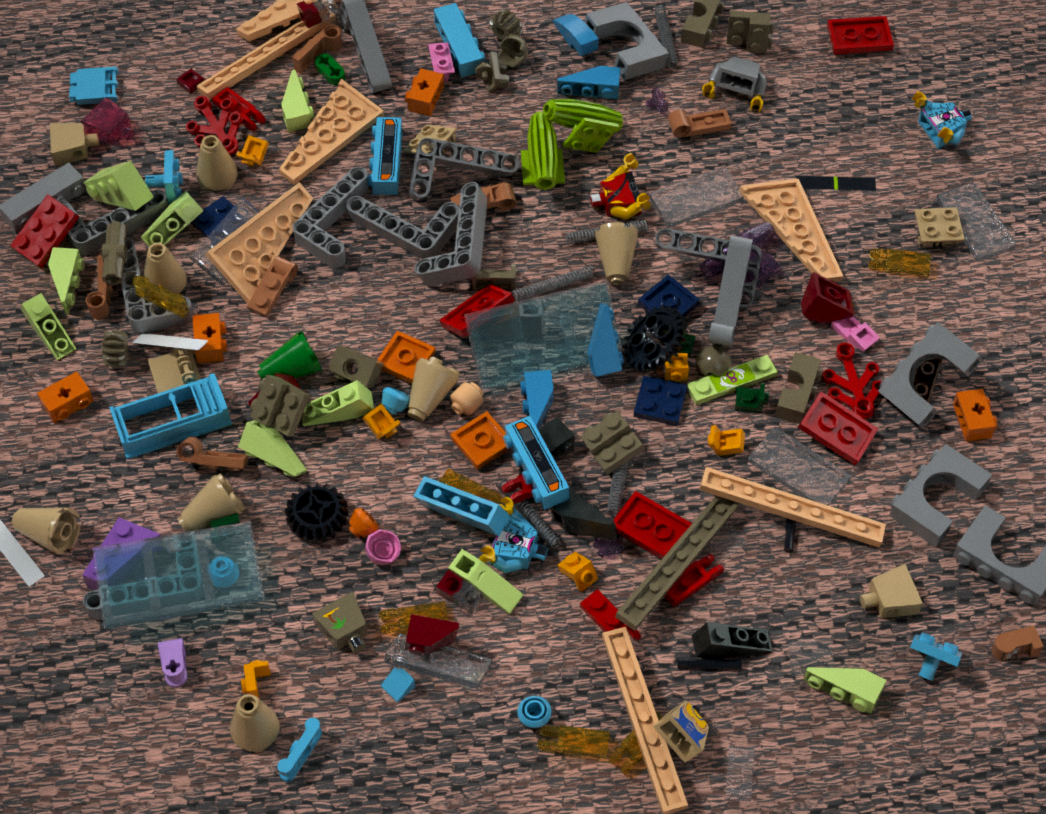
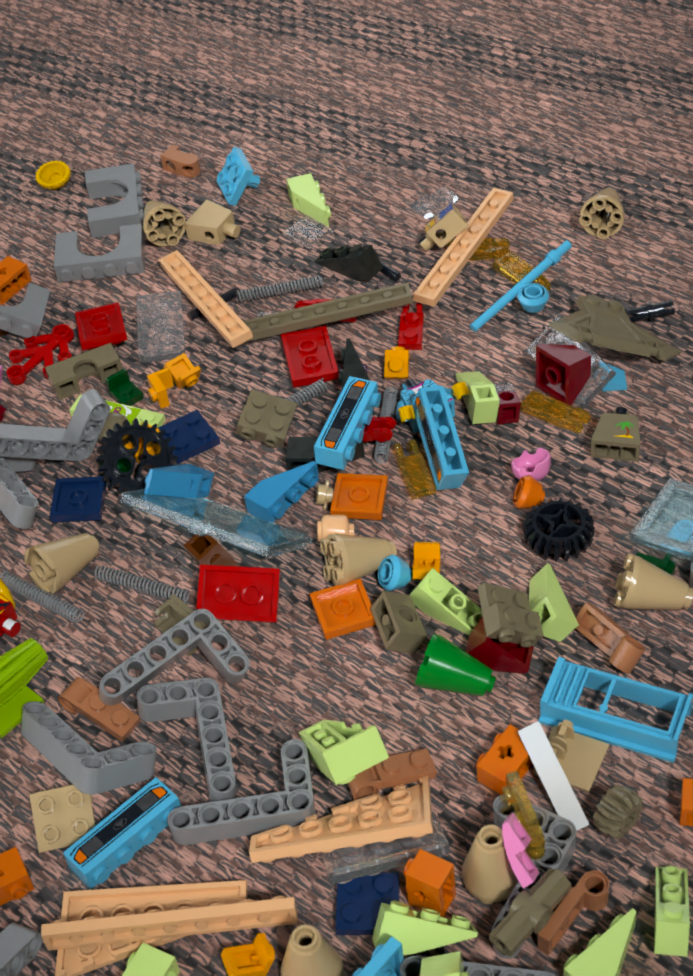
camera: 130 degrees left, 10 degrees down
(140, 264) = (515, 841): none -> bright pink slope
(185, 235) = (430, 882): none -> orange brick
(302, 254) = (343, 750): none -> yellowish green wedge
(303, 128) = (170, 923): none -> light nougat plate
(427, 777) = (651, 311): none -> black pin
(430, 712) = (608, 326): none -> dark tan plate
(504, 419) = (324, 494): none -> tan plate
(552, 756) = (551, 259): none -> medium azure bar
(725, 413) = (158, 383): none -> light orange bracket
(748, 576) = (280, 287): none -> light grey piece
(935, 558) = (163, 223): none -> tan cone

